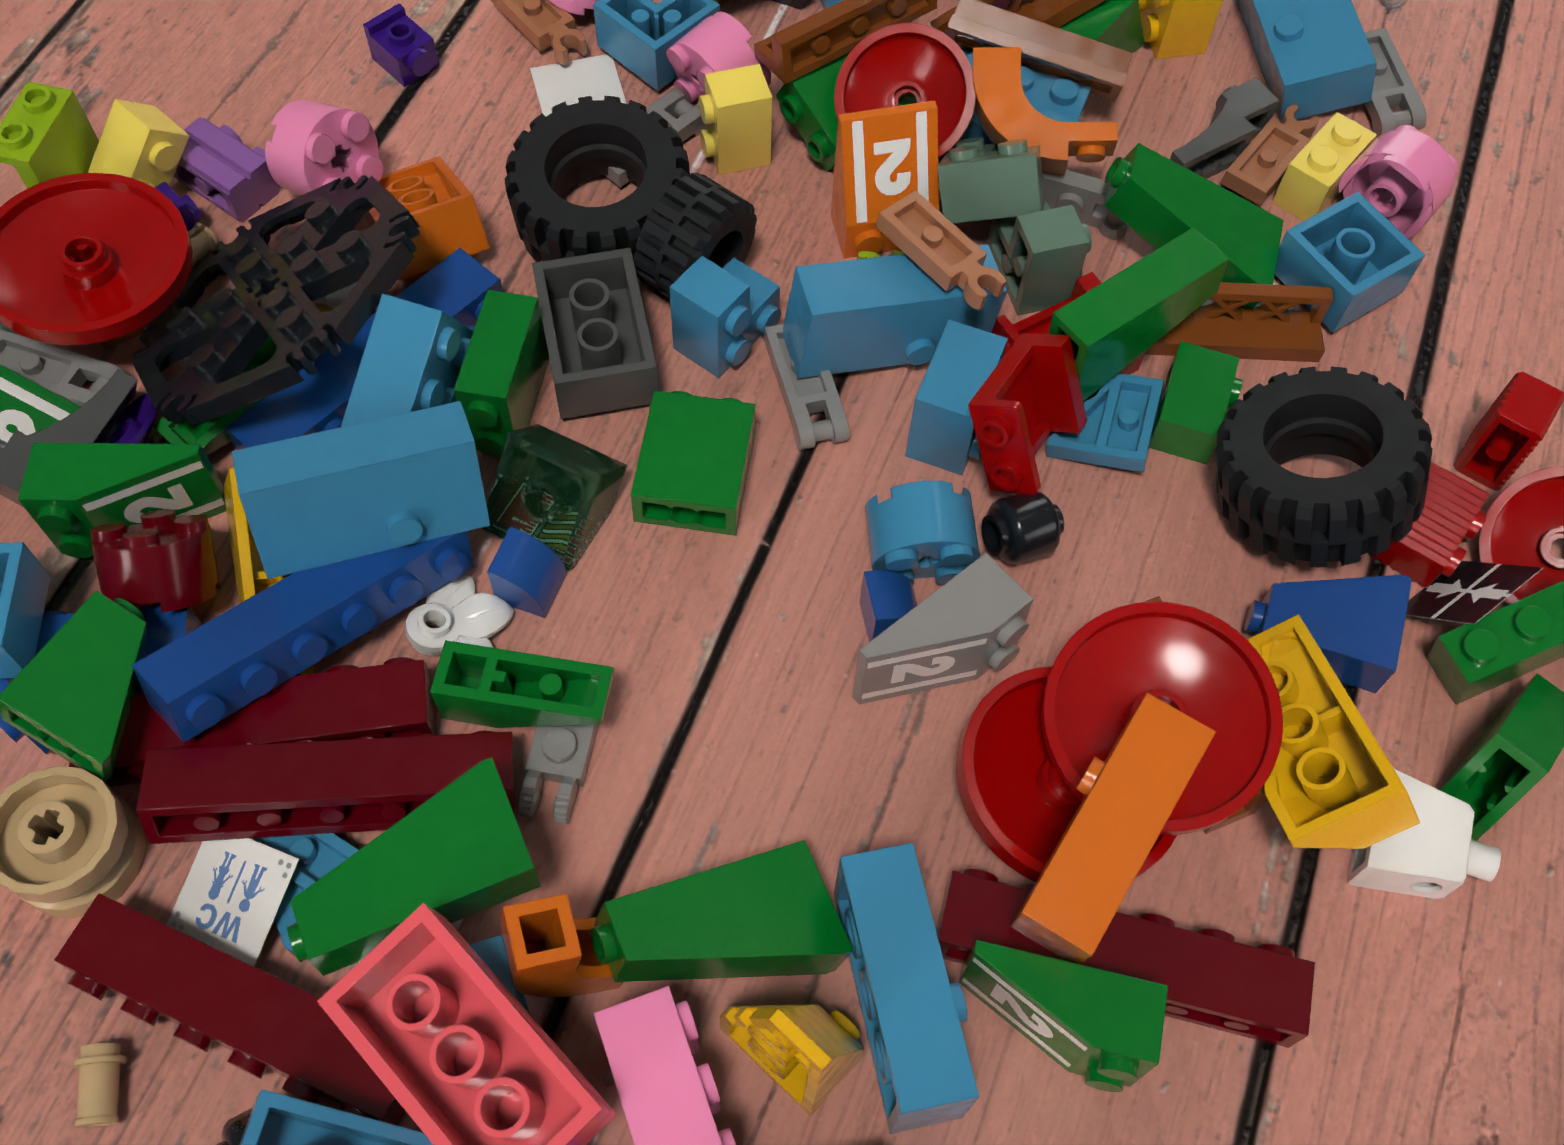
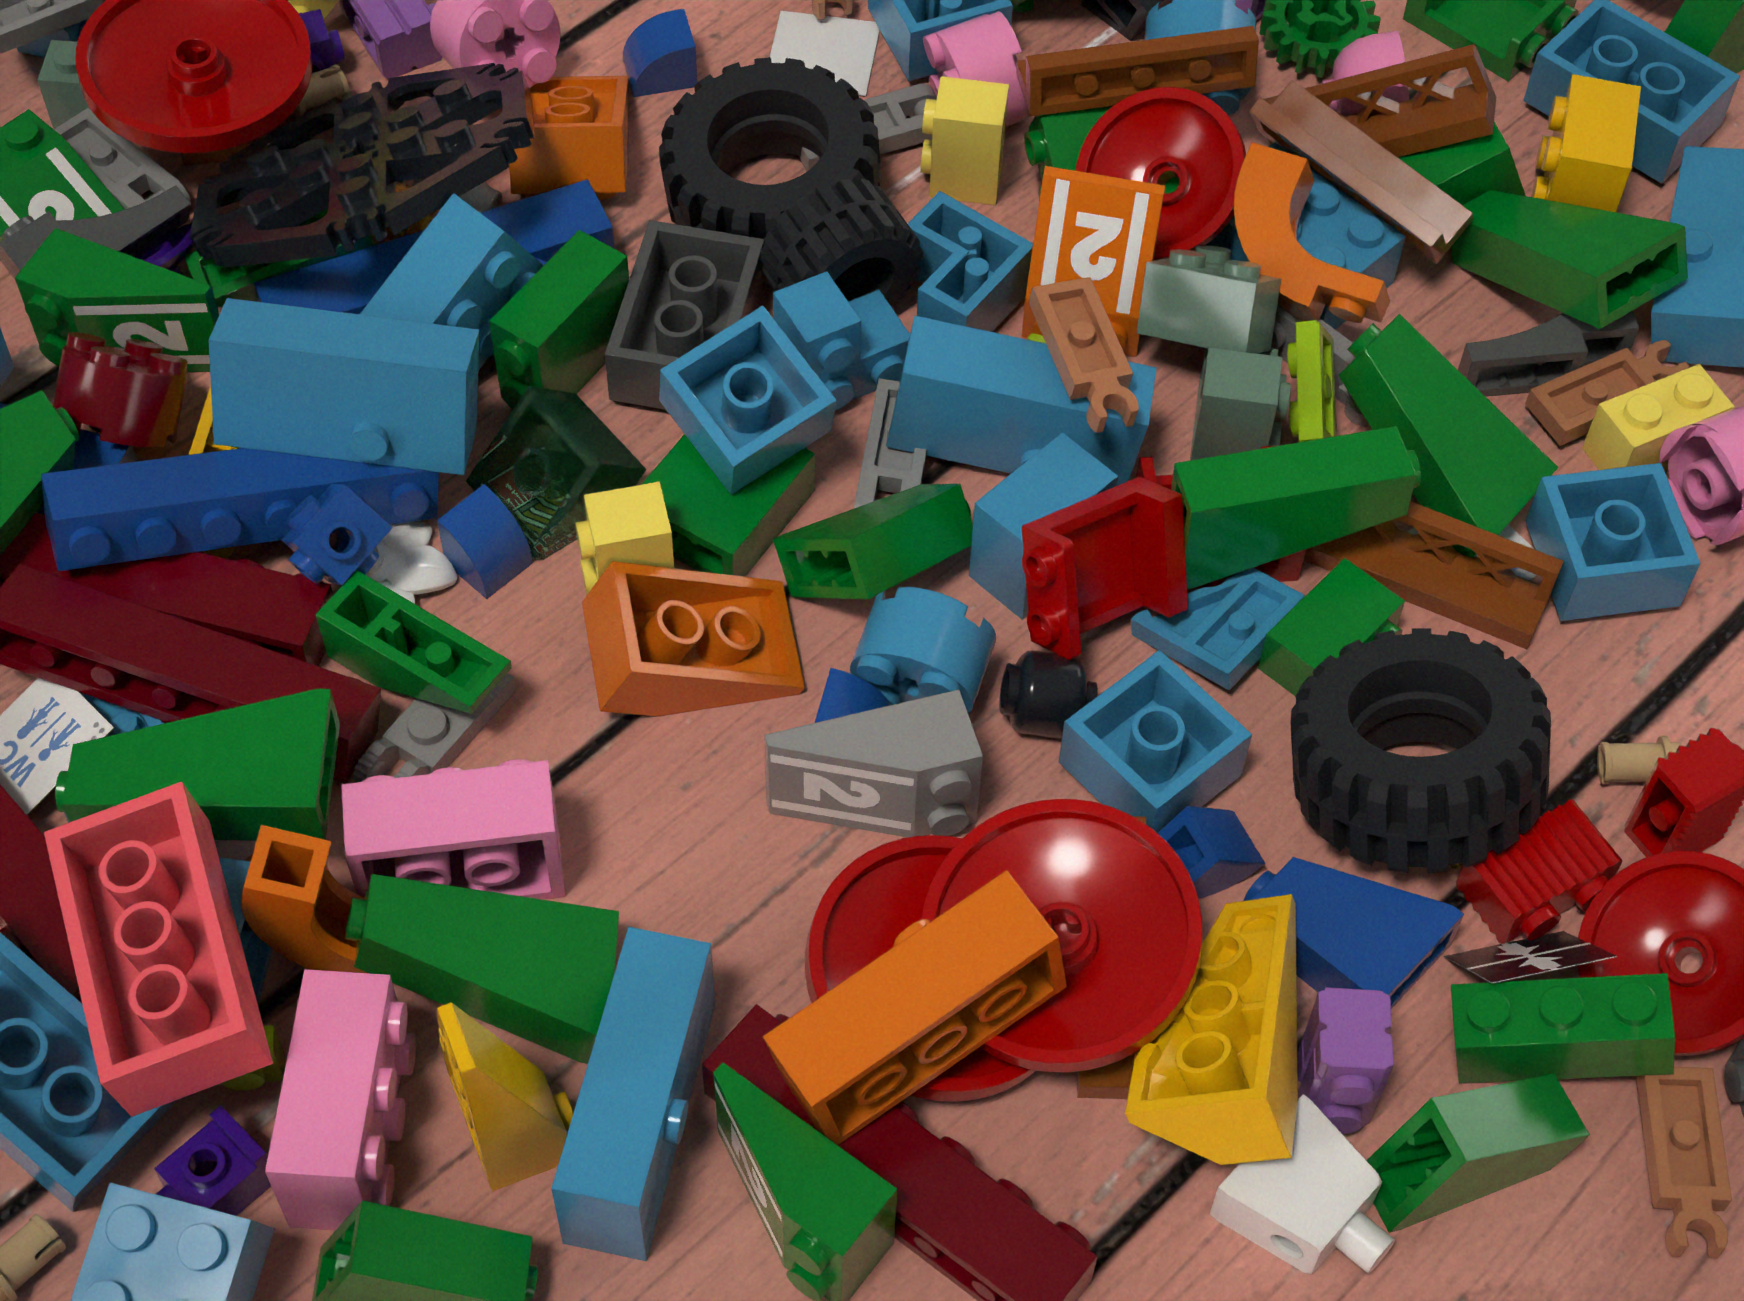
camera: 25 degrees right, 5 degrees down
(412, 618) = (357, 533): none -> blue brick
(460, 130) = (661, 55): none -> blue brick
(642, 831) = (458, 829): none -> bright pink brick
(653, 535) = (624, 528): none -> light yellow brick
(694, 380) = (746, 399): none -> dark azure brick
(728, 592) = (688, 640): none -> orange slope
(792, 217) = (969, 265): none -> dark azure brick
(838, 459) = (876, 543): none -> green slope
(1087, 208) = (1313, 365): none -> lime hinge
(1126, 537) = (1154, 744): none -> dark azure brick
(1204, 591) = (1212, 848): none -> blue brick
(1212, 62) = (1572, 255): none -> green slope
(1408, 718) = (1346, 1055): none -> medium lavender brick
(1457, 410) = (1631, 760): none -> tan pin

